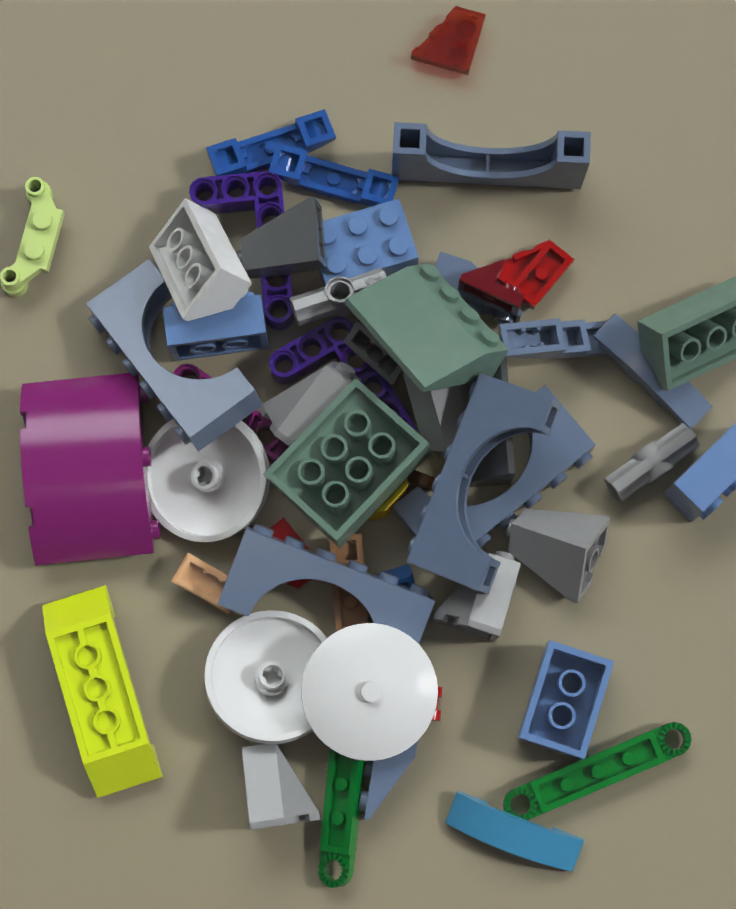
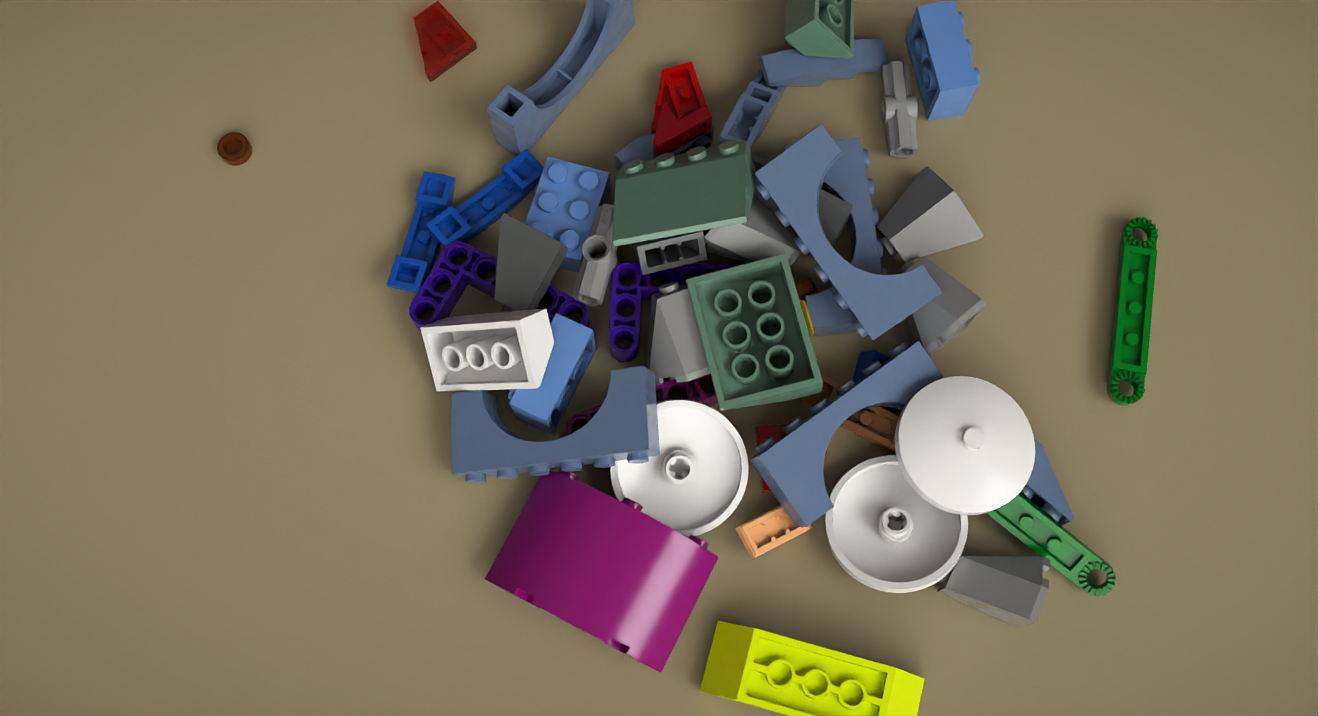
camera: 55 degrees left, 5 degrees down
(37, 240) = (361, 481): yellowish green plate -> none
(514, 834) = (1146, 410): dark azure slope -> none
(565, 700) = (1061, 294): medium blue brick -> none

